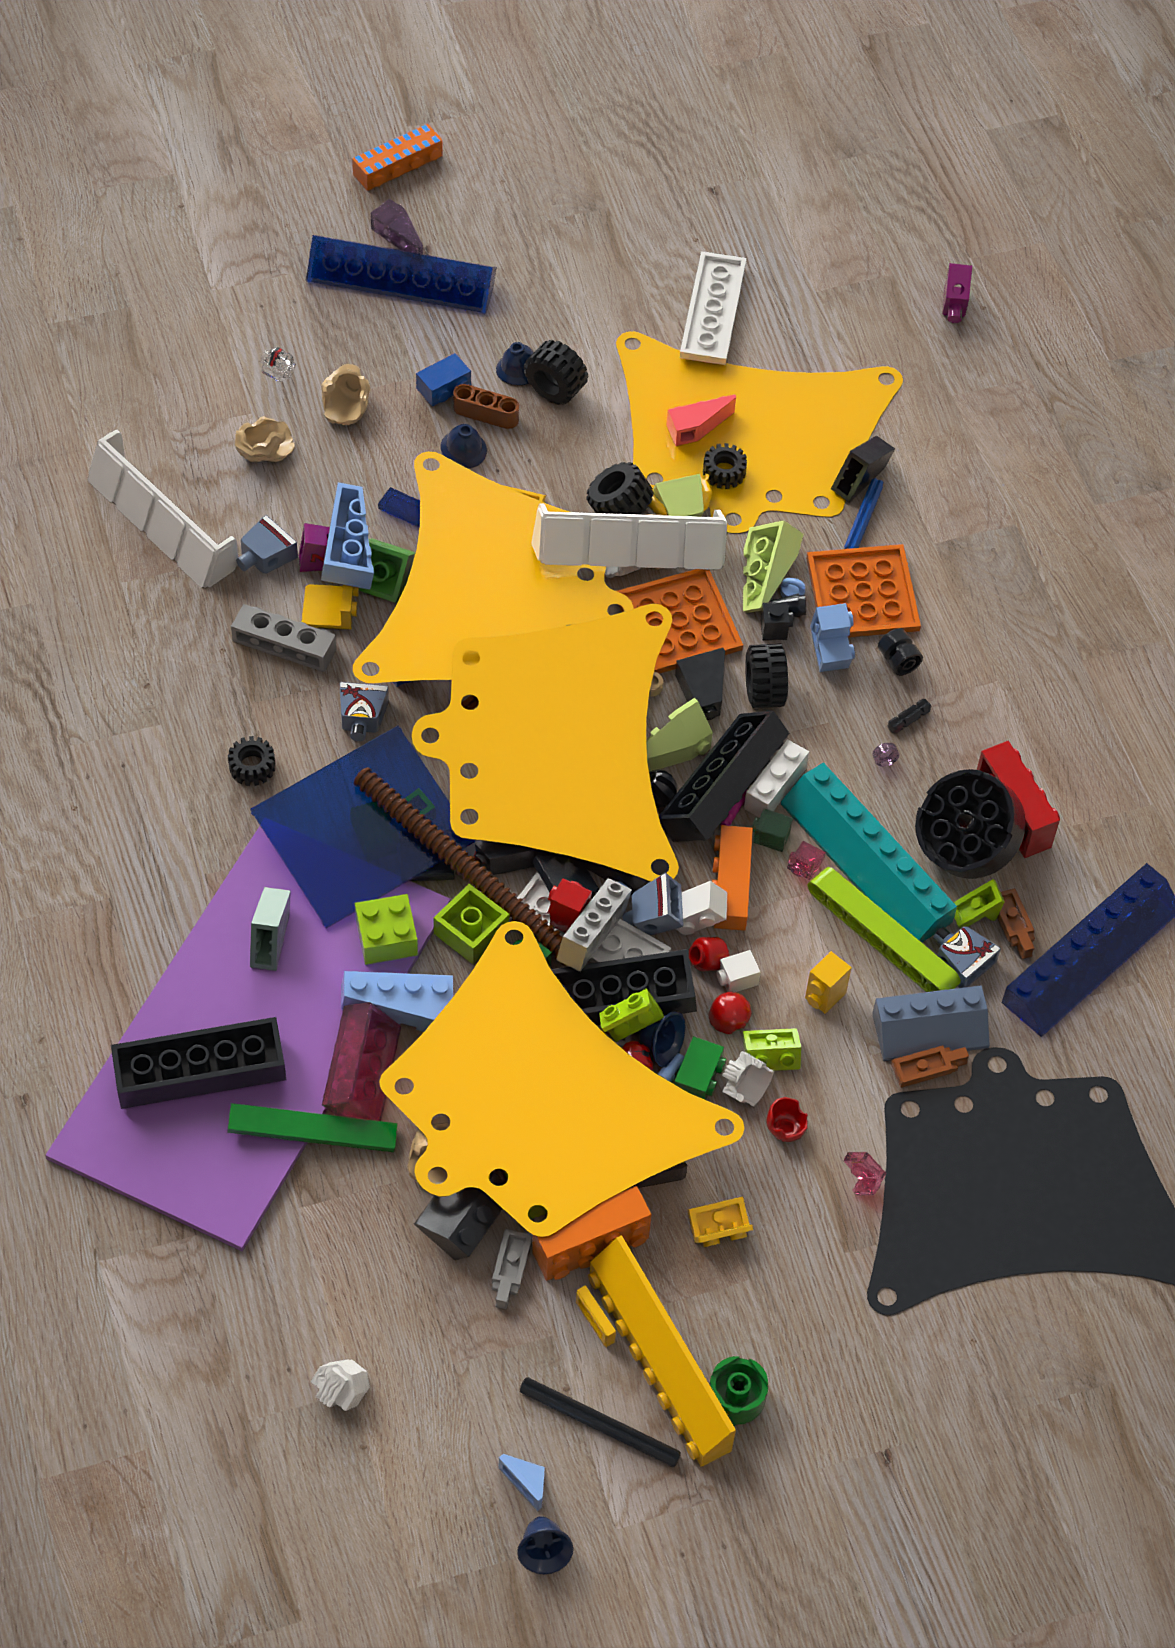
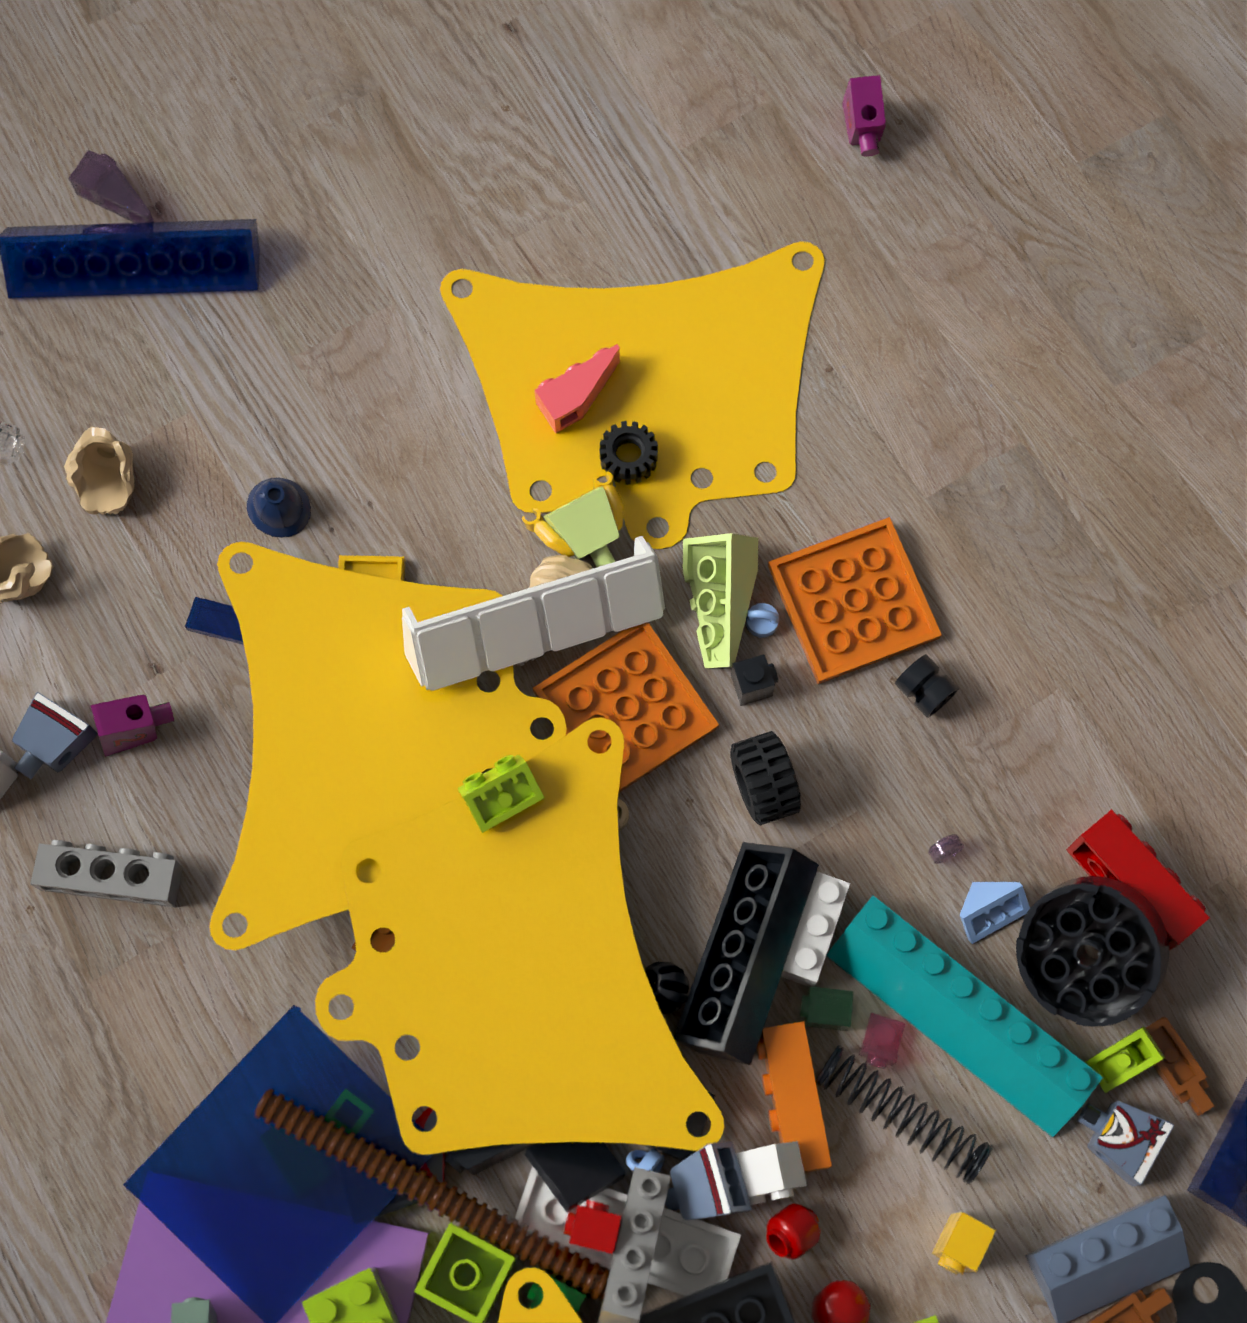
camera: 10 degrees left, 15 degrees up
(251, 773) = (90, 1073): black tyre -> none
(329, 606) = (157, 804): yellow bracket -> none
(348, 548) = (156, 731): light blue wedge -> none
(362, 708) = (238, 969): torso -> none
(390, 569) = (215, 731): bright green slope -> none
(397, 157) = (85, 78): orange brick -> none
(440, 379) = (227, 413): blue brick -> none
(486, 406) = (281, 429): dark orange beam -> none
(511, 365) = (323, 363): dark blue hat -> none
(556, 372) = (373, 369): black tyre -> none
(577, 629) = (500, 792): none -> lime bracket
(620, 490) = (503, 540): black tyre -> none
(681, 738) = (676, 900): yellowish green wedge -> none
(702, 679) = (682, 801): black slope -> none
(713, 308) = (554, 211): white plate -> none
(738, 972) = (838, 1248): white brick -> none
(796, 604) = (770, 643): black cone -> none
(830, 637) = (835, 694): light blue brick -> none
(854, 946) = (982, 1151): none -> black piece
(861, 467) = (808, 412): black slope -> none
(864, 514) = (826, 482): blue axle -> none
(882, 932) = (1013, 1132): lime beam -> none
(905, 799) = (992, 907): none -> light blue slope
(909, 716) = (960, 777): black axle -> none

